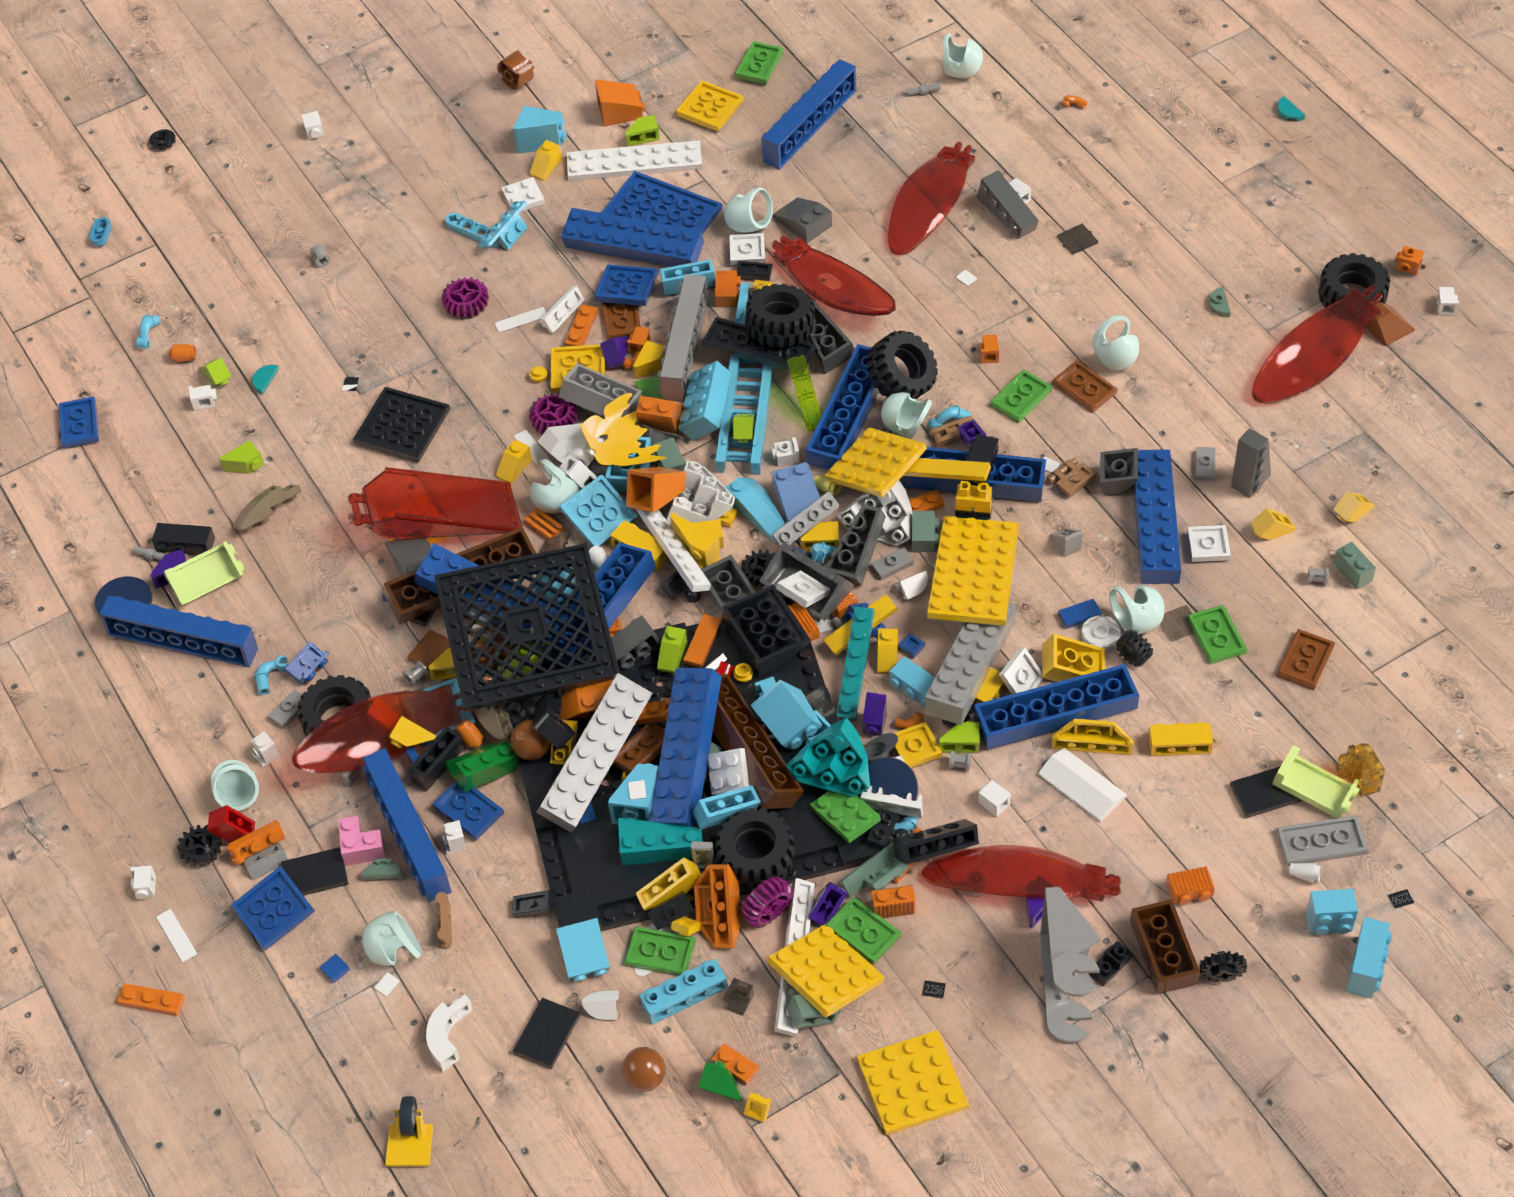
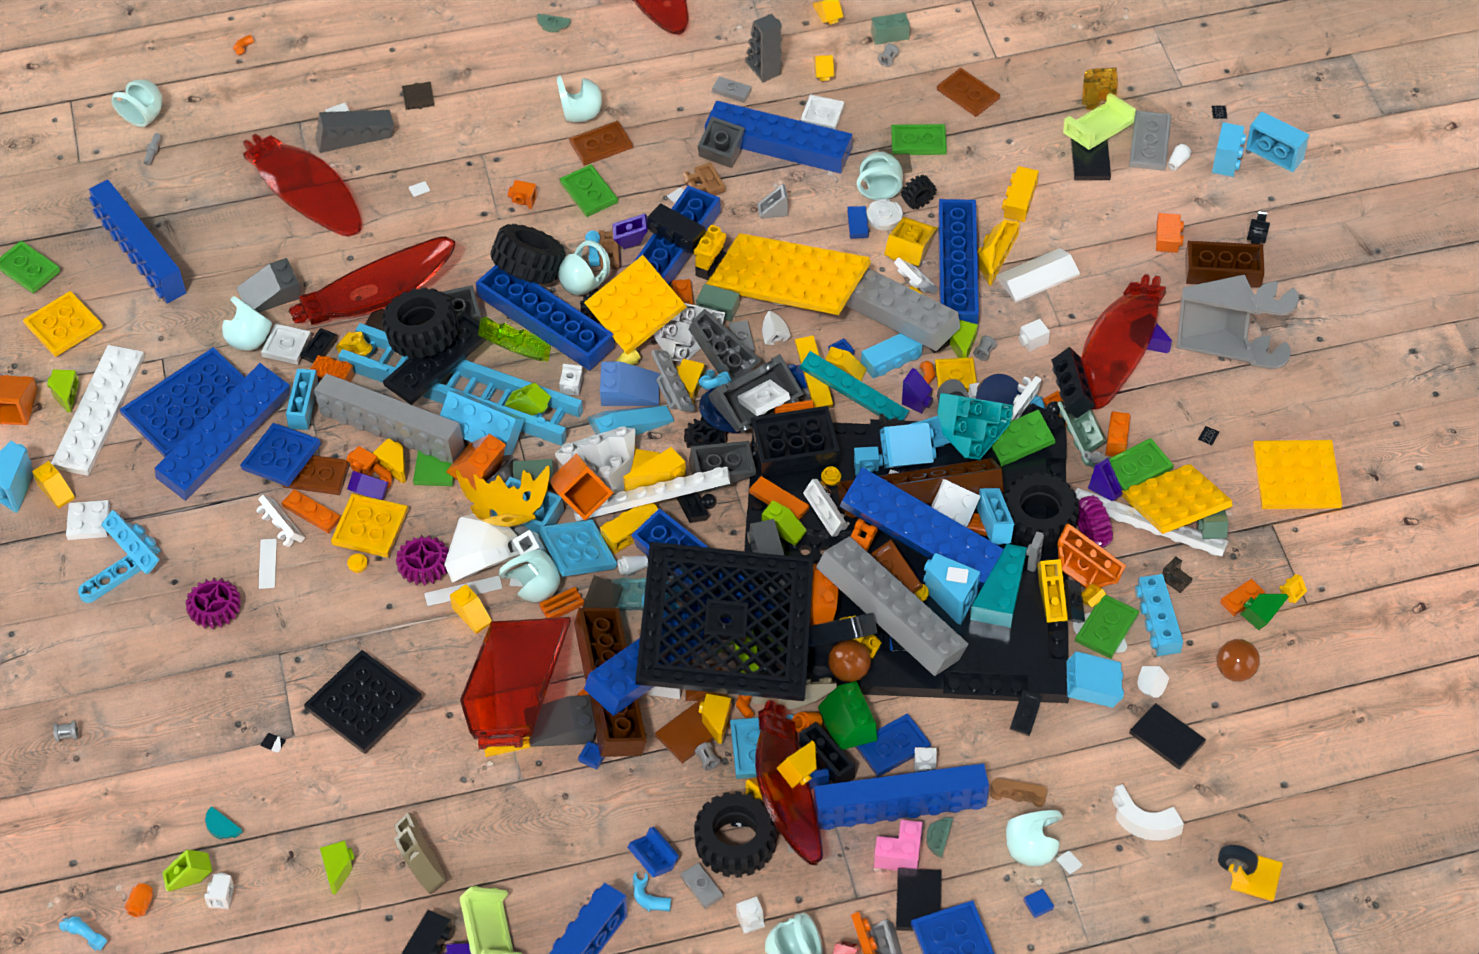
camera: 75 degrees left, 0 degrees up
(595, 390) = (426, 506): light grey brick -> none
(853, 887) = (1095, 456): none -> light grey bar
(949, 469) = (681, 245): yellow tile -> none

